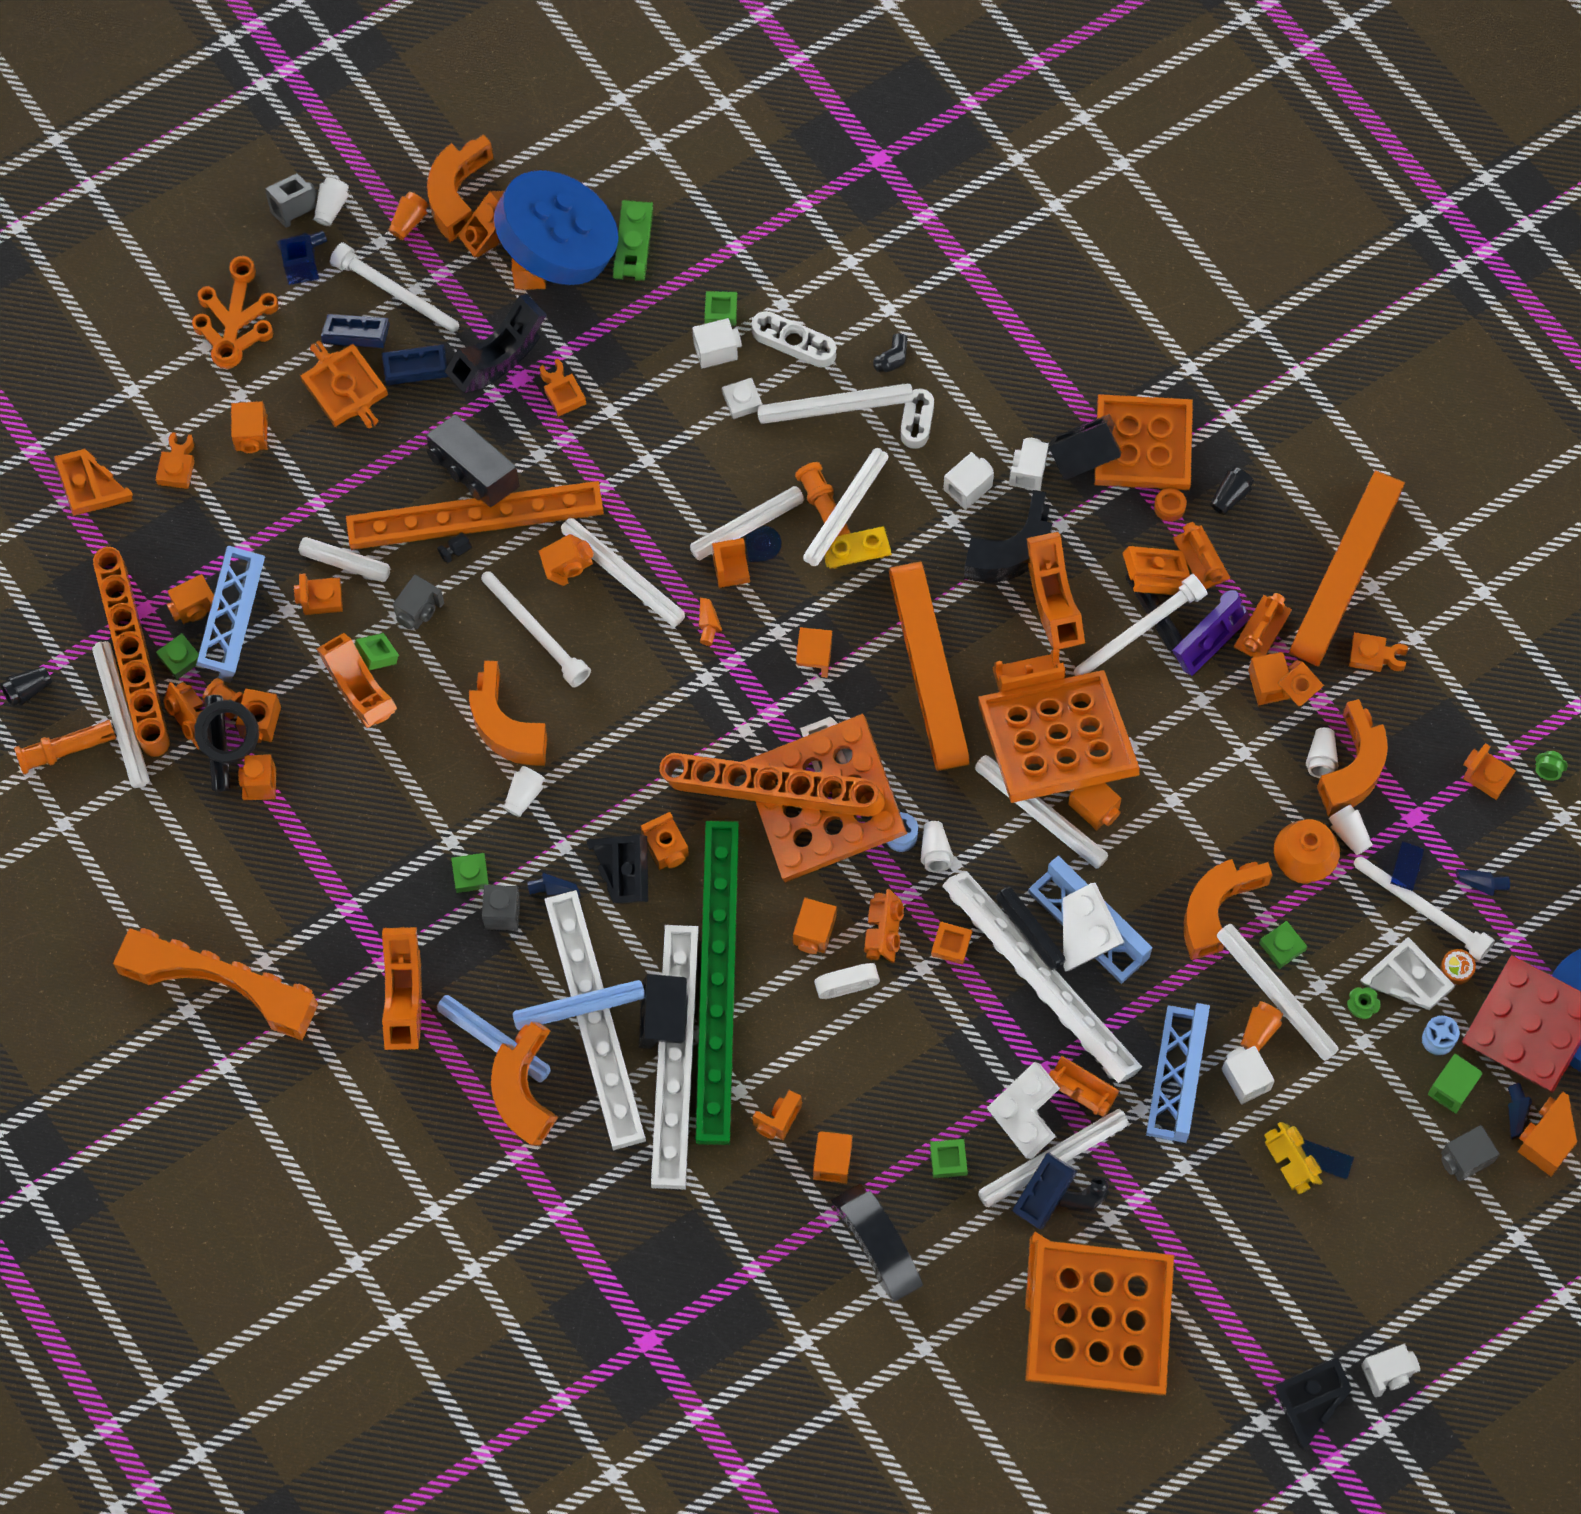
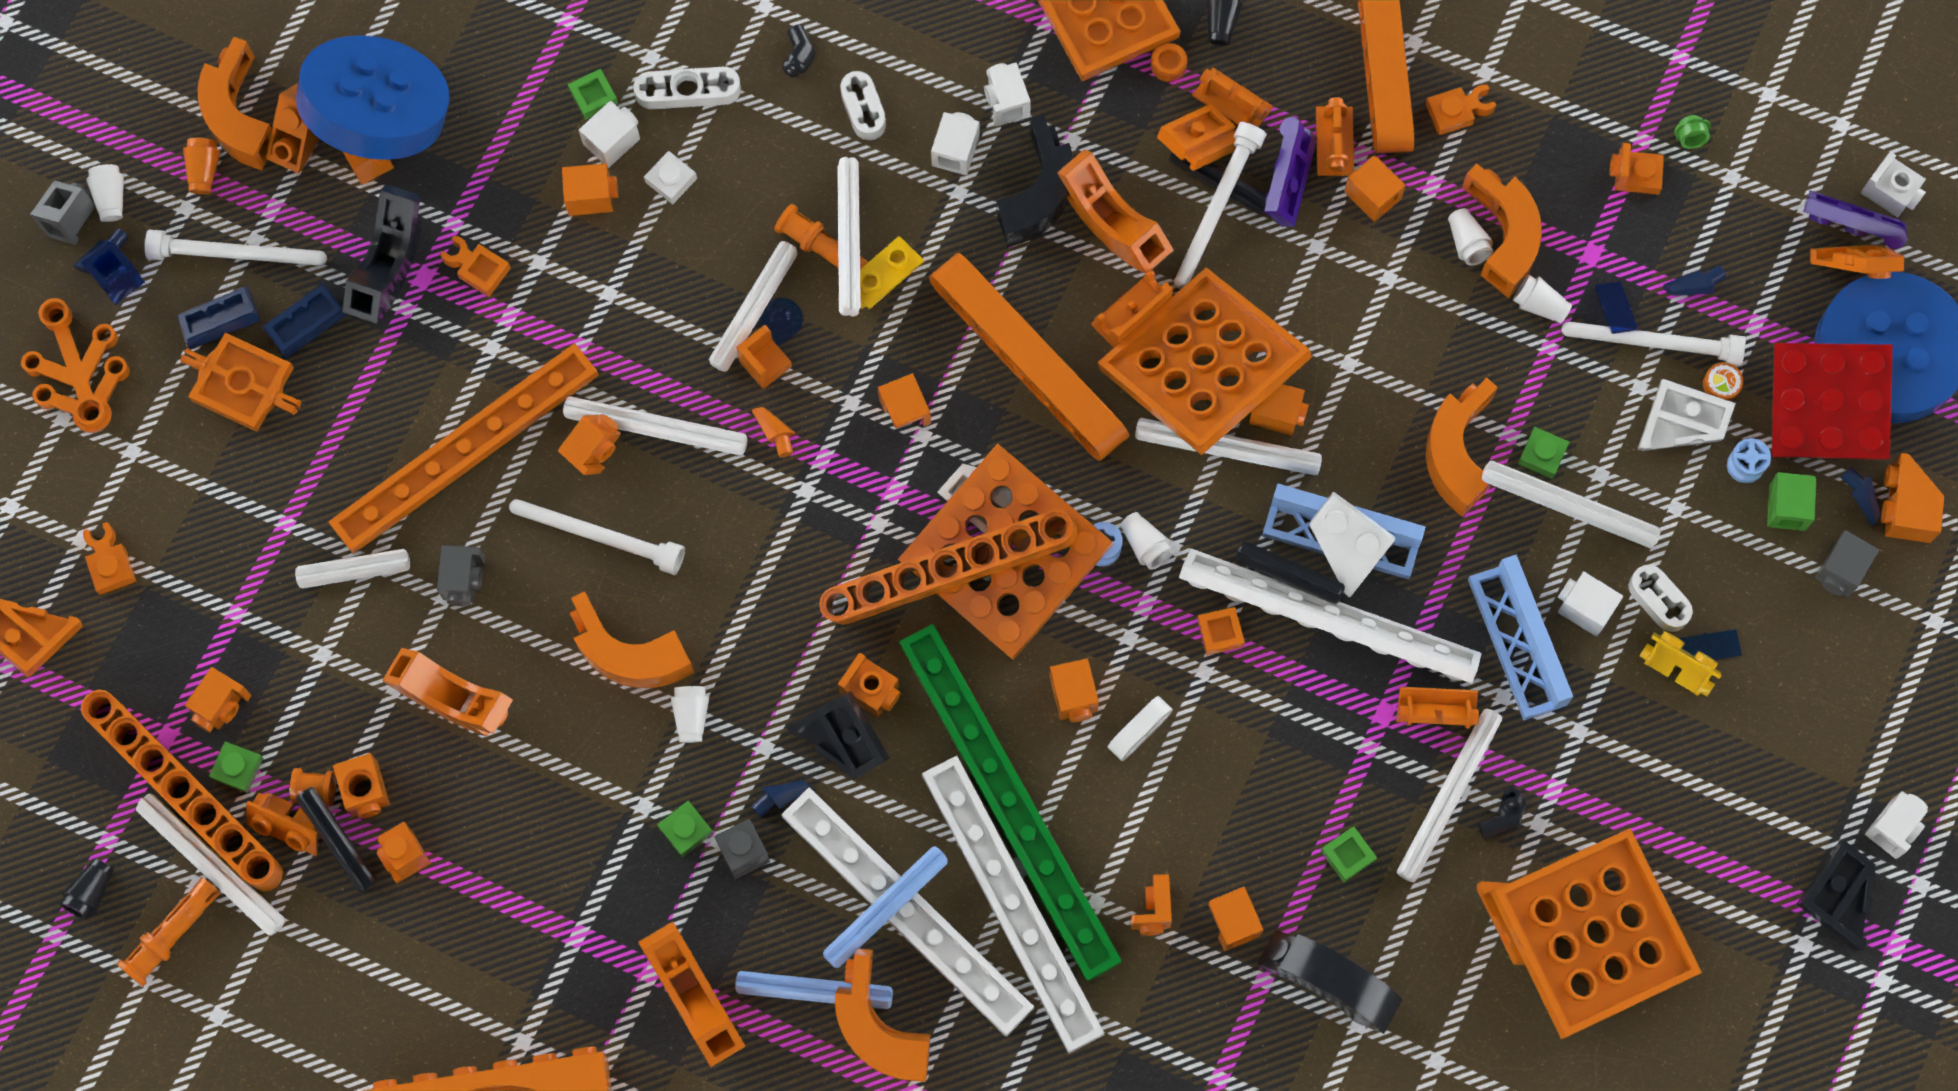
camera: 30 degrees left, 5 degrees up
(215, 709) = (349, 852): black tyre -> none
(242, 613) = (278, 690): light blue fence -> none
(249, 426) = (165, 480): orange brick -> none
(319, 595) = (349, 621): orange bracket -> none
(376, 651) = (447, 648): bright green plate -> none
(457, 545) = (465, 490): black piece -> none
(472, 461) = (430, 392): brick -> none
(633, 240) = (458, 68): bright green plate -> none
(662, 1010) = (973, 864): black panel -> none
(675, 375) = (588, 189): none -> orange brick
(835, 403) = (772, 133): white axle -> none
(886, 912) = (1139, 637): orange hinge -> none
(1017, 1109) = (1388, 766): white plate -> none
(1044, 1191) = (1464, 834): dark blue plate -> none
(1085, 447) = (1054, 46): black panel -> none
(1261, 1026) = (1573, 547): orange cone -> none
(1300, 683) = (1410, 176): orange bracket -> none
(1306, 851) = (1512, 345): orange cone -> none
(1315, 1100) = (1667, 592): none -> white beam
(1360, 1010) = (1651, 477): bright green plate -> none

